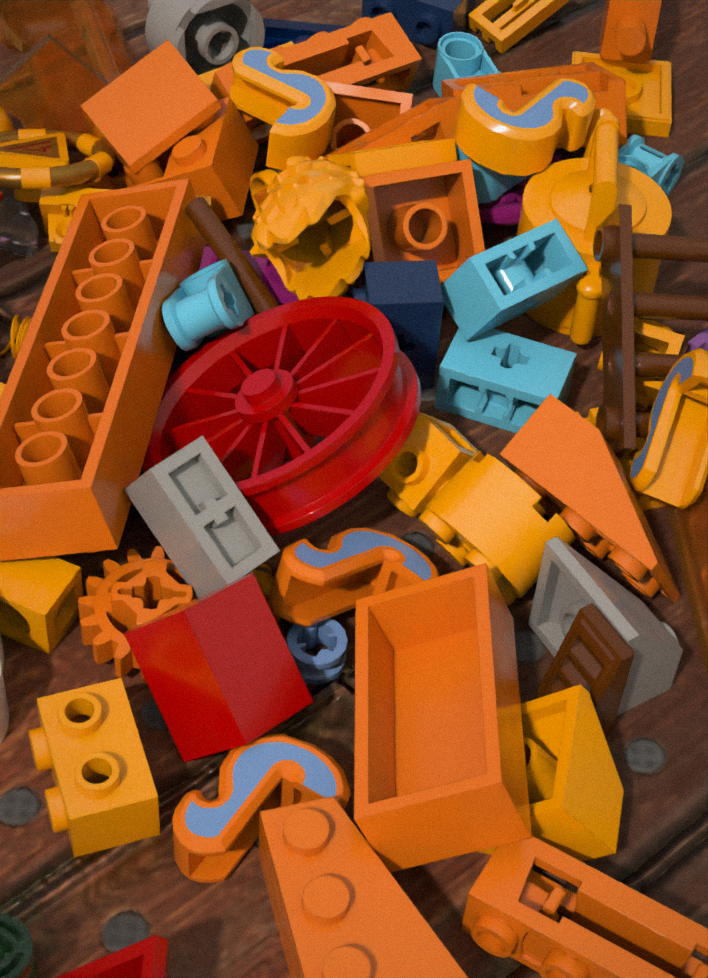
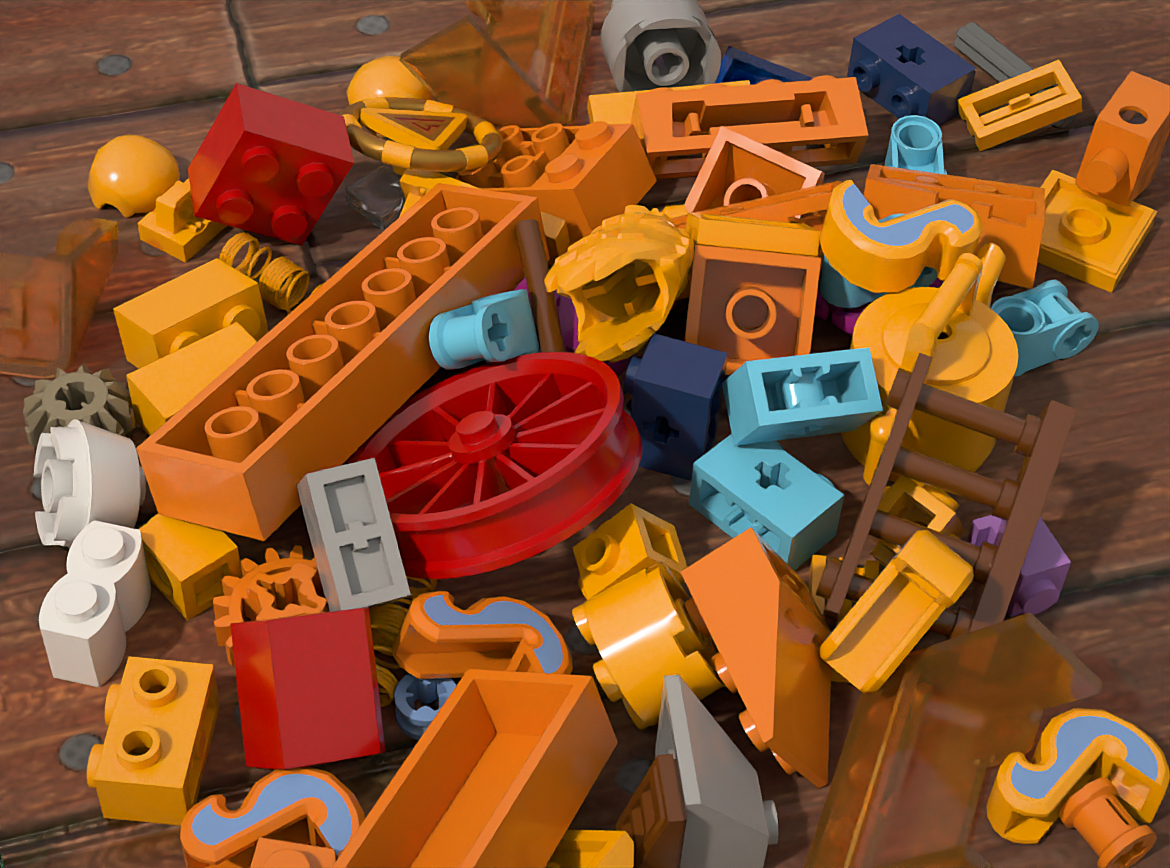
camera: 25 degrees right, 0 degrees up
(149, 107) = (545, 113): orange slope -> none
(290, 100) = (689, 146): light orange animal -> none

